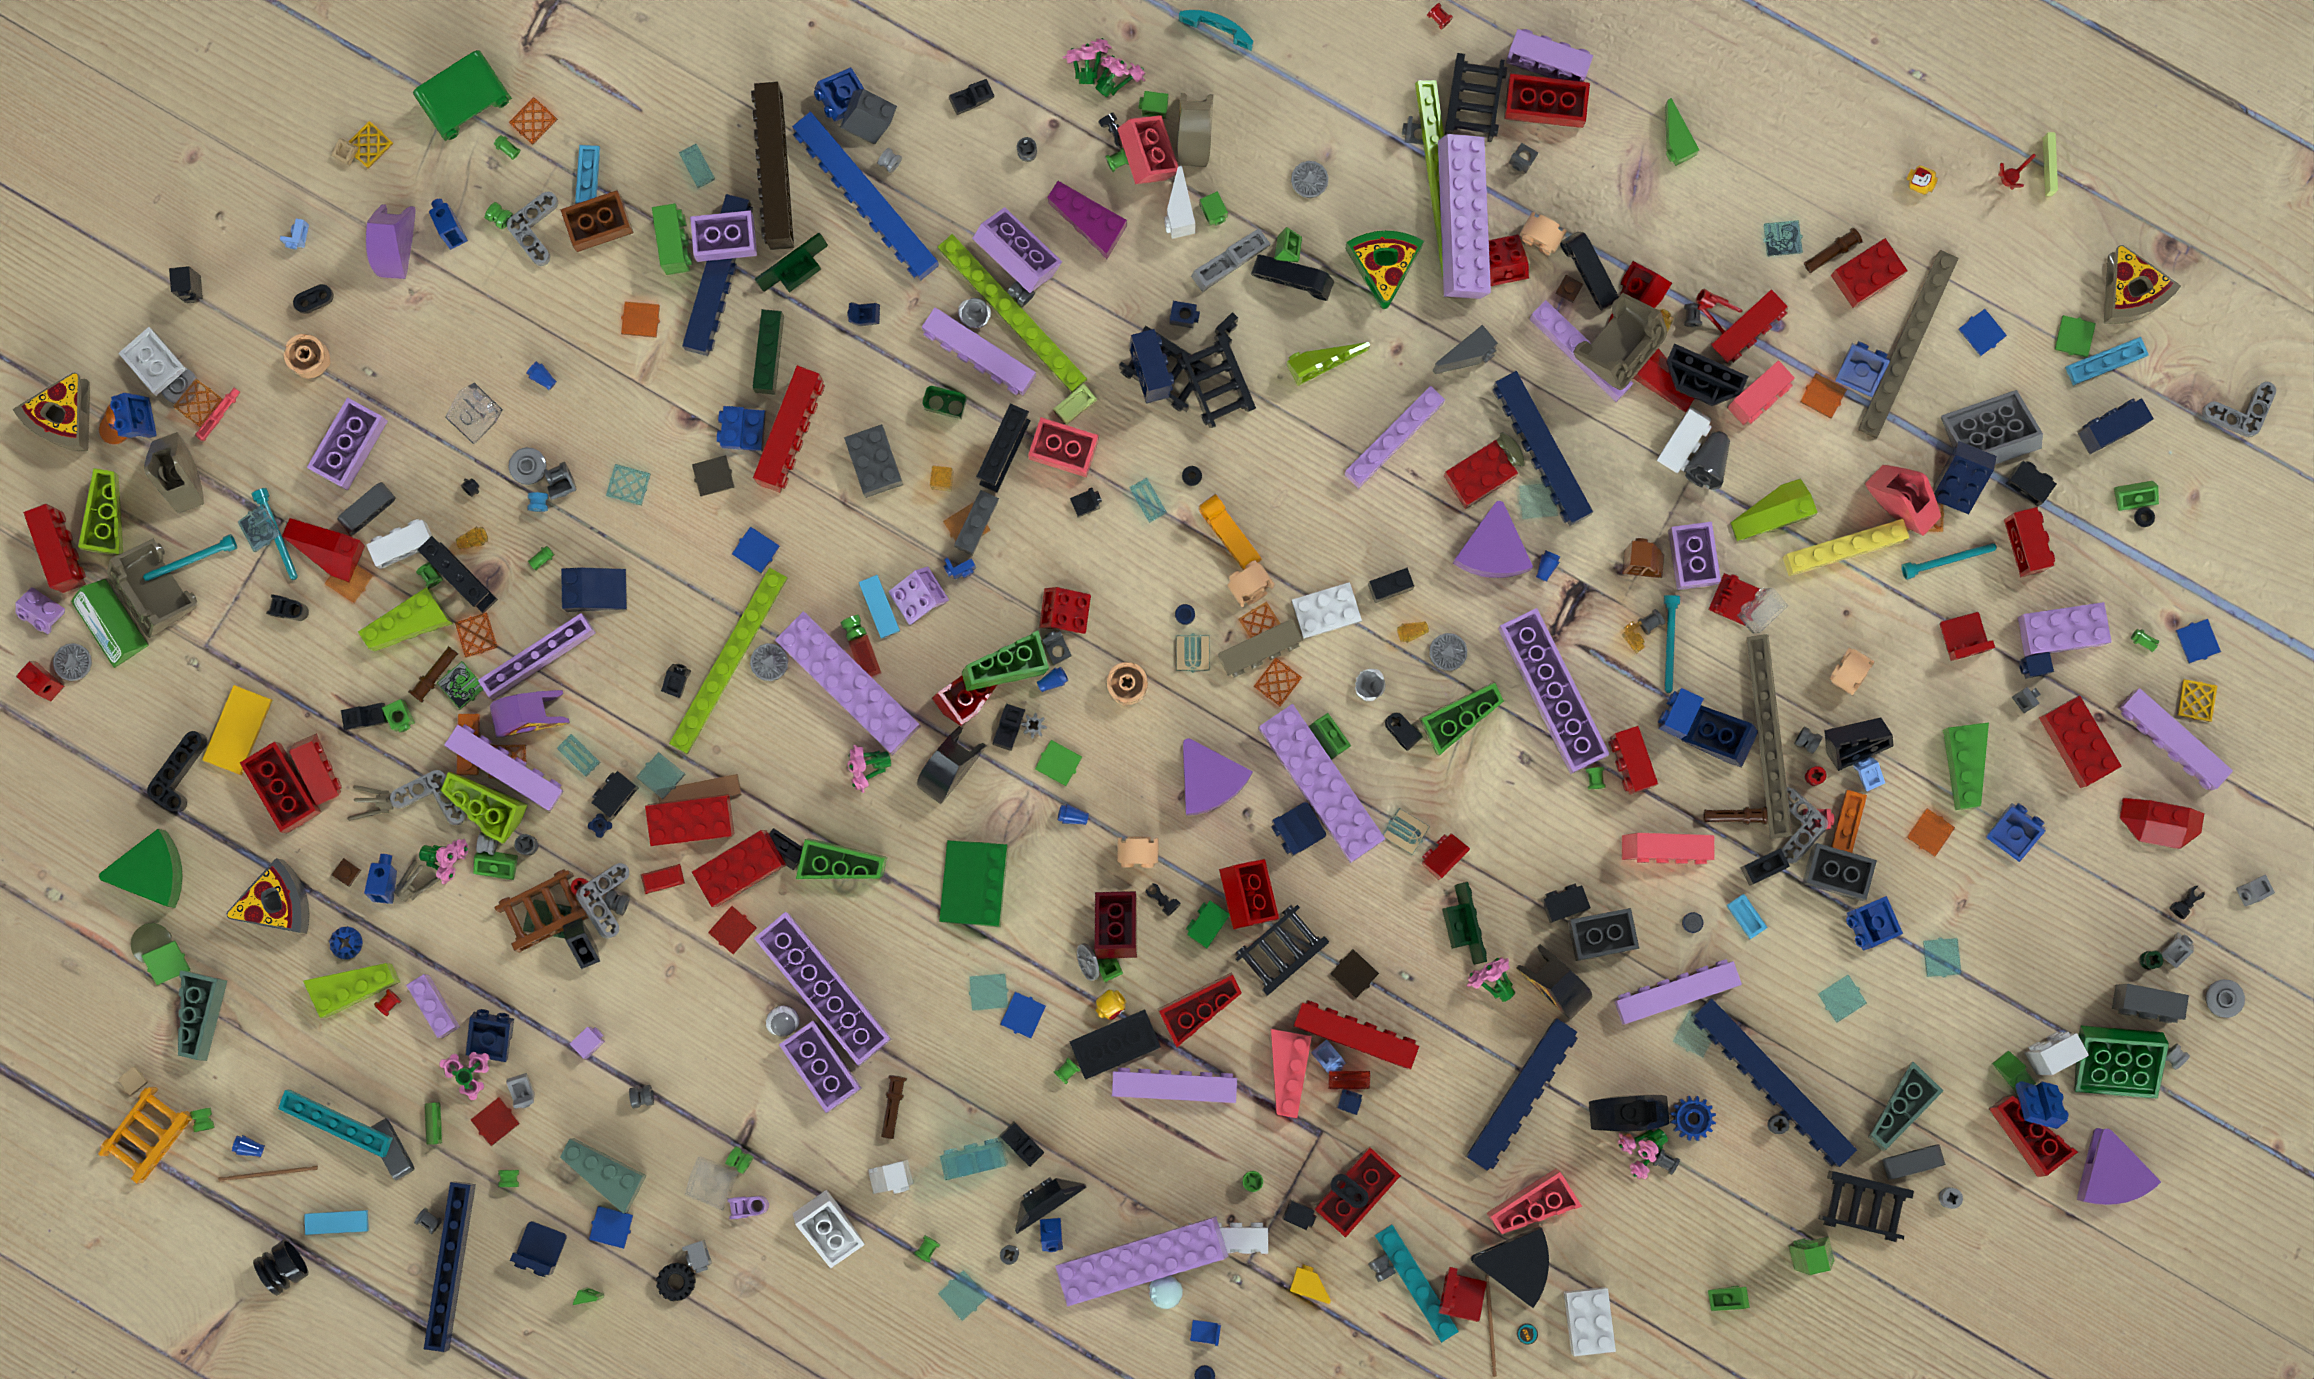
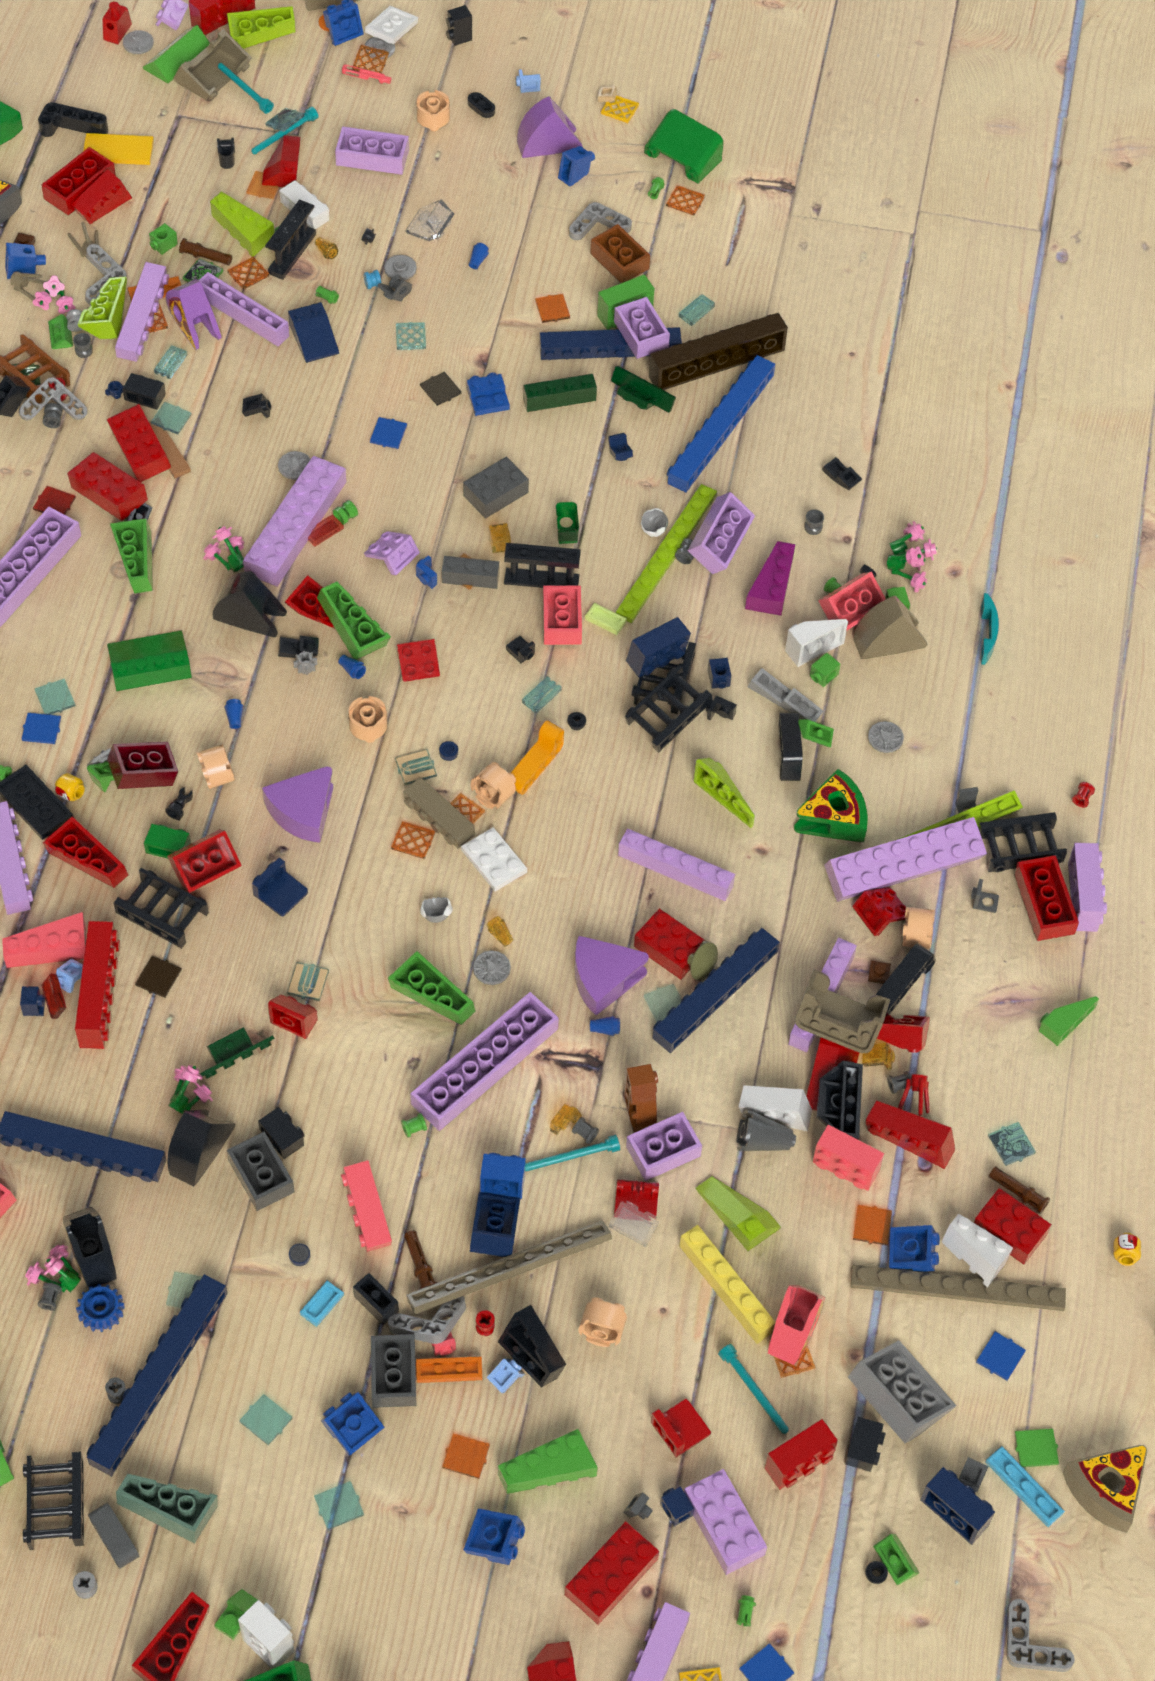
camera: 65 degrees right, 25 degrees down
(174, 472) = (315, 57): dark tan piece -> none
(363, 717) = (153, 217): black slope -> none
(366, 508) = (325, 177): dark grey beam -> none
(498, 215) = (598, 194): bright green wheel -> none
(587, 173) = (662, 242): medium azure tile -> none
(662, 879) = (82, 443): red tile -> none
(728, 660) = (286, 438): lime plate -> none
(788, 429) = (498, 419): red brick -> none
(836, 92) = (801, 383): blue plate -> none
(868, 115) = (789, 402): dark grey slope -> none
(879, 606) = (371, 528): medium azure tile -> none
(889, 160) = (760, 431): light grey wheel -> none
(979, 352) = (622, 535): lavender brick -> none
(1056, 639) = (387, 657): dark grey bracket -> none
(1058, 763) = (279, 693): bright green piece -> none
(1321, 783) = (328, 896): lavender brick -> none
(1329, 736) = (377, 894): bright green slope -> none
(1391, 585) = (536, 900): black brick -> none
(1405, 734) = (402, 947): black piece -> none
(1471, 351) = (780, 897): dark grey slope -> none
(1633, 760) = (441, 1147): red brick -> none
(1678, 992) = (224, 1258): lavender brick -> none
(1808, 740) = (519, 1301): dark grey wheel -> none
(1885, 311) = (977, 1248): none -> white wedge
(1964, 477) = (840, 1364): dark blue brick -> none
(2042, 1104) = (209, 1640): blue plate -> none
(2087, 402) = (973, 1473): none -> dark grey bracket

